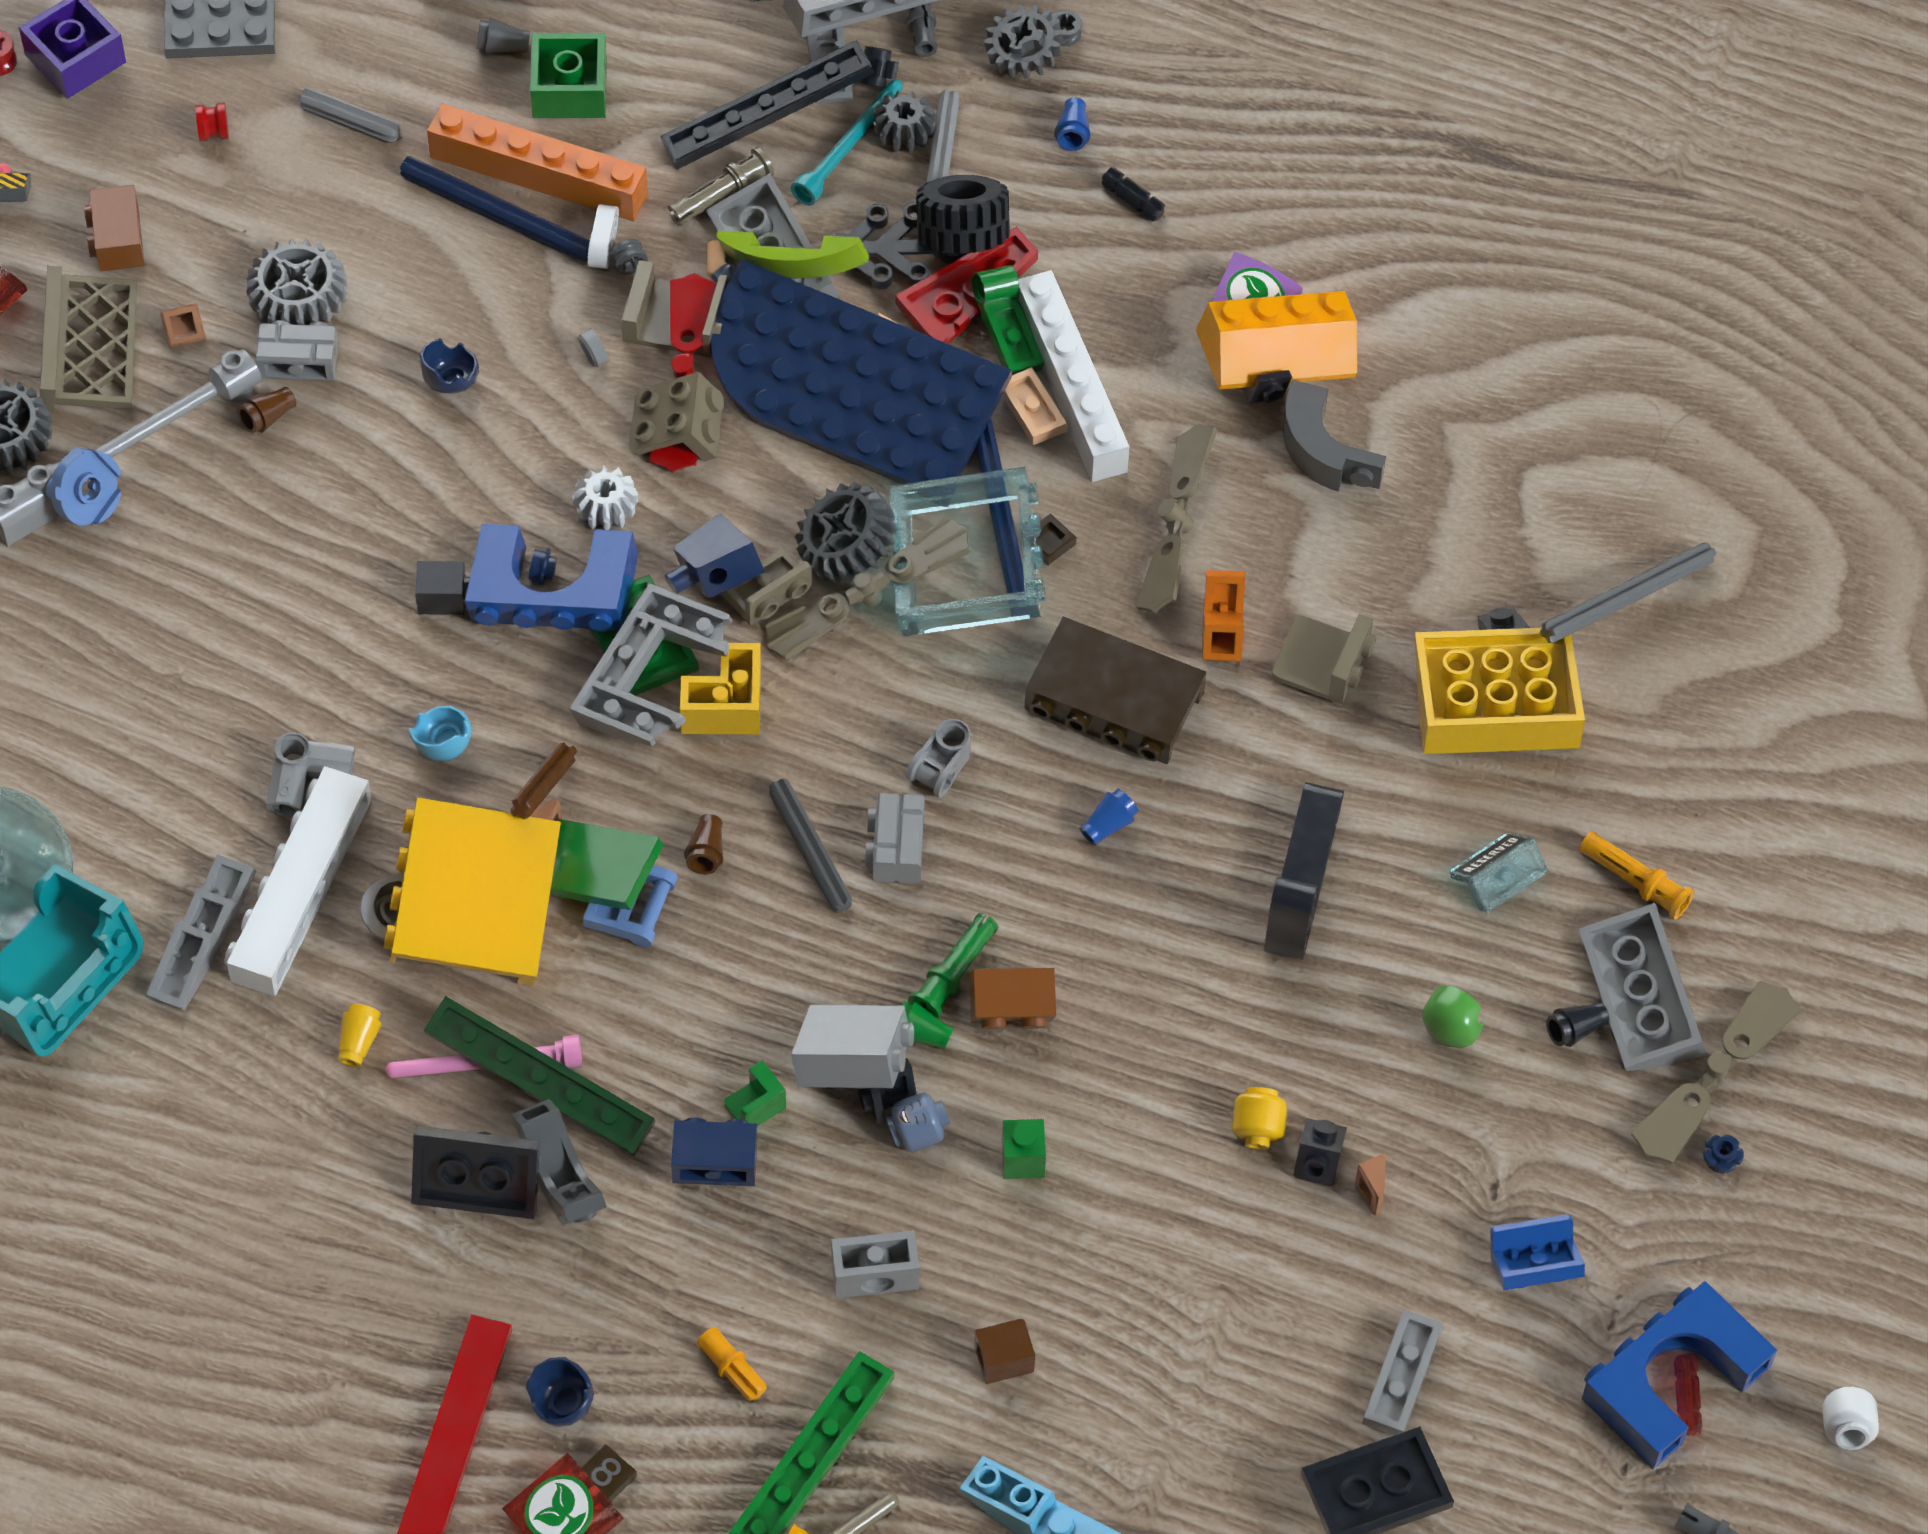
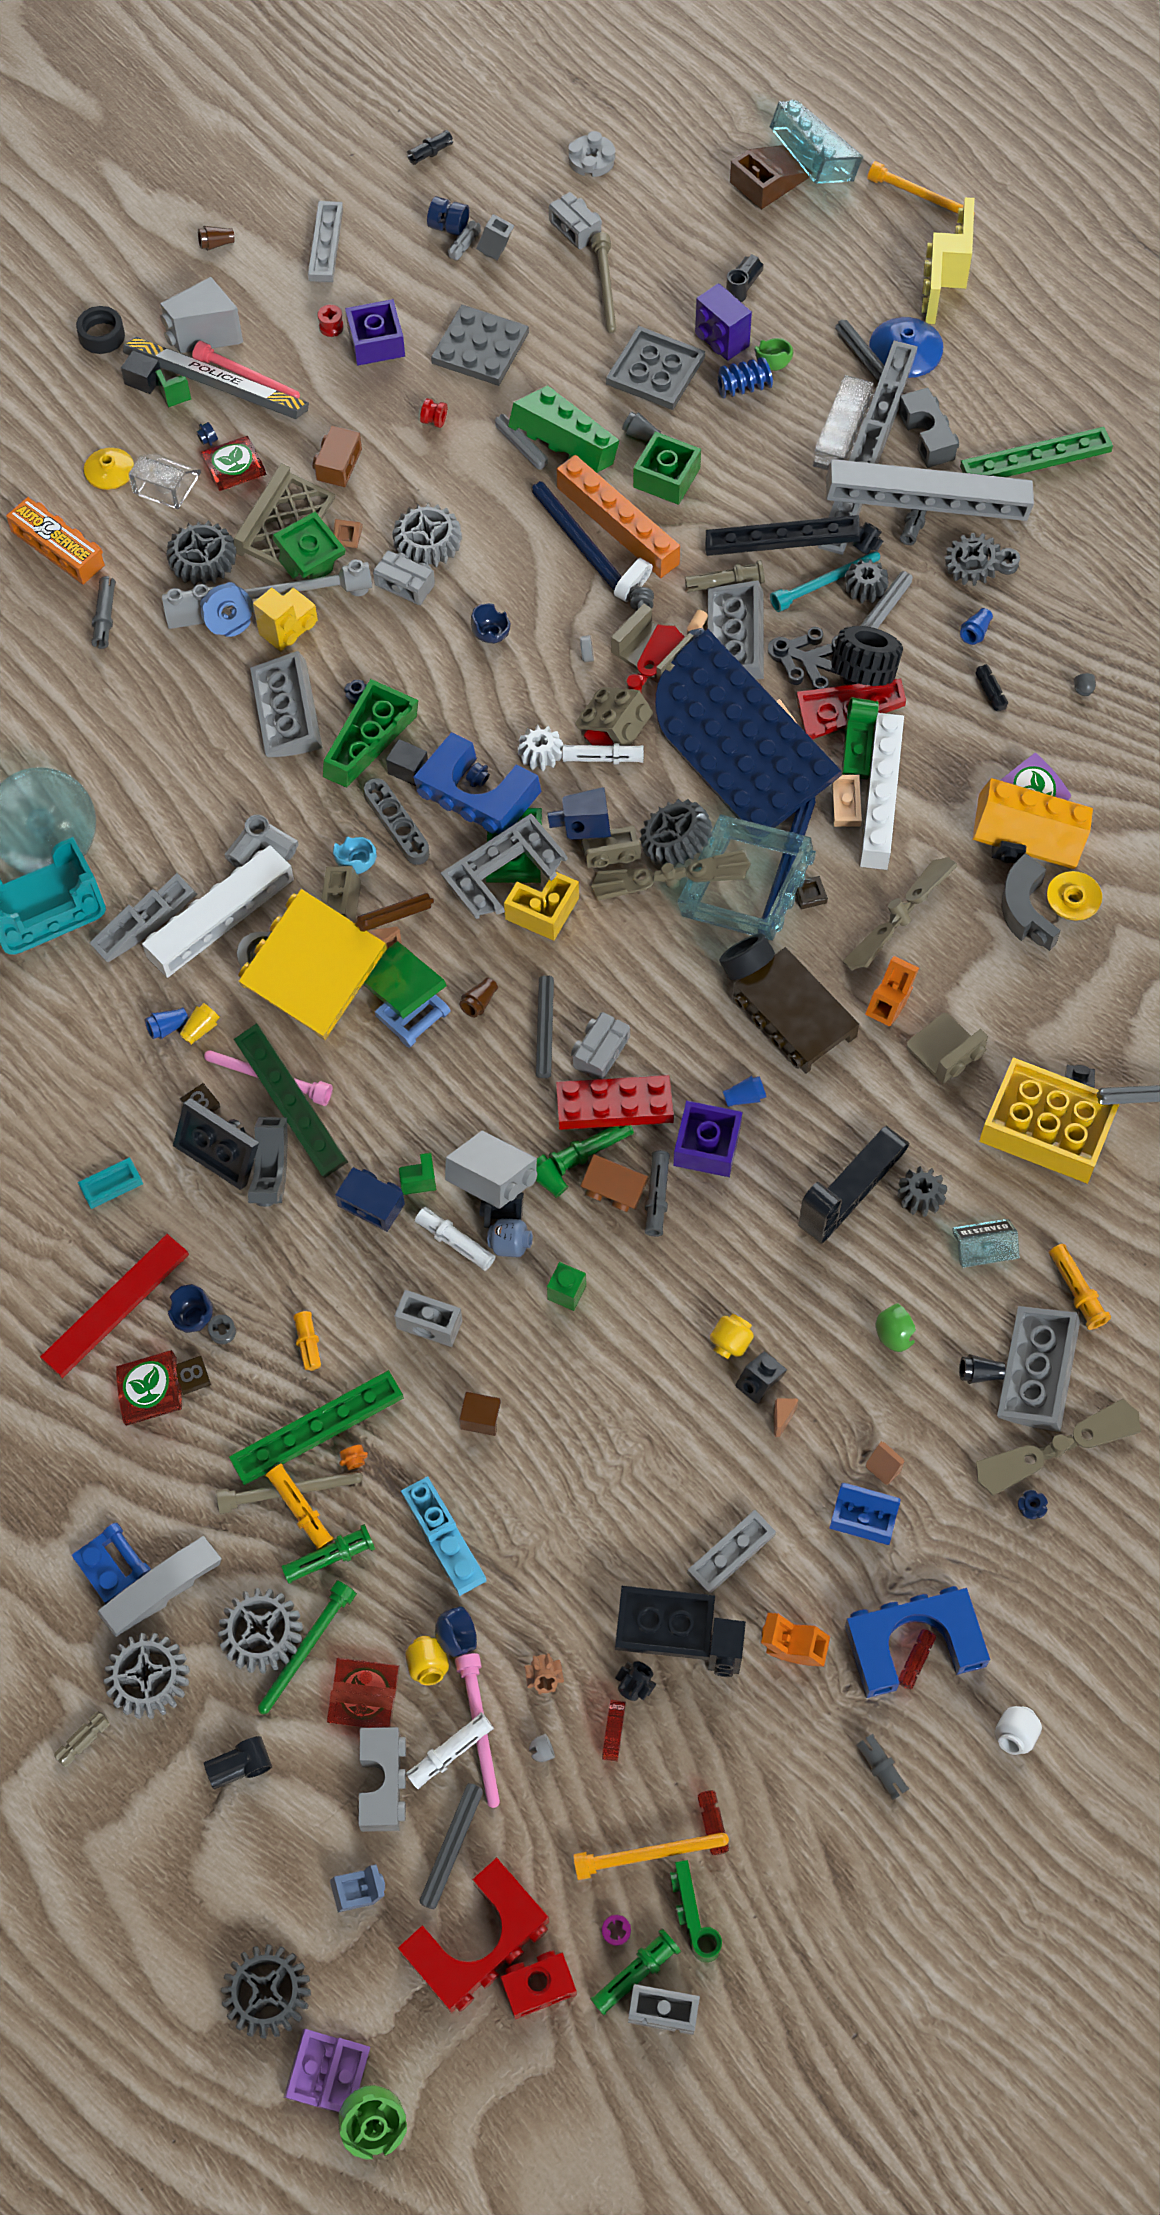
camera: 30 degrees right, 5 degrees up
(149, 362) = (308, 547): none -> green panel
(167, 467) = (284, 617): none -> yellow brick
(232, 582) = (286, 706): none -> light grey slope
(263, 410) = (364, 606): reddish brown cone -> none
(310, 1053) = (164, 1023): none -> blue cone
(318, 532) = (352, 695): none -> dark blue plate
(355, 1286) = (110, 1183): none -> teal tile
(369, 561) = (368, 731): none -> green wedge
(403, 1132) = (203, 1096): none -> dark brown tile
(404, 74) = (564, 428): none -> green wedge
(447, 779) = (342, 890): none -> dark tan hinge
(471, 664) = (398, 820): none -> dark grey beam
(614, 1389) = (215, 1336): none -> dark grey bush
(704, 467) = (598, 753): none -> white pin
(835, 256) = (763, 650): lime slope -> none
(845, 1154) = (447, 1233): none -> white pin
(873, 1477) = (353, 1457): none -> orange plate
(938, 763) = (653, 1008): light grey piece -> none
(954, 899) = (614, 1102): none -> plate
(1022, 648) = (747, 956): none -> black tyre
(1086, 1023) = (655, 1213): none -> dark grey pin
(1098, 892) = (707, 1138): none -> dark purple brick
(1245, 144) = (1085, 684): none -> dark grey hinge
(1380, 397) = (1078, 887): none -> yellow dish
(1391, 842) = (912, 1195): none -> dark grey gear
(1468, 1480) = (726, 1647): none -> black brick
(1525, 1184) = (885, 1463): none -> nougat slope
(1539, 1441) = (794, 1642): none -> orange brick

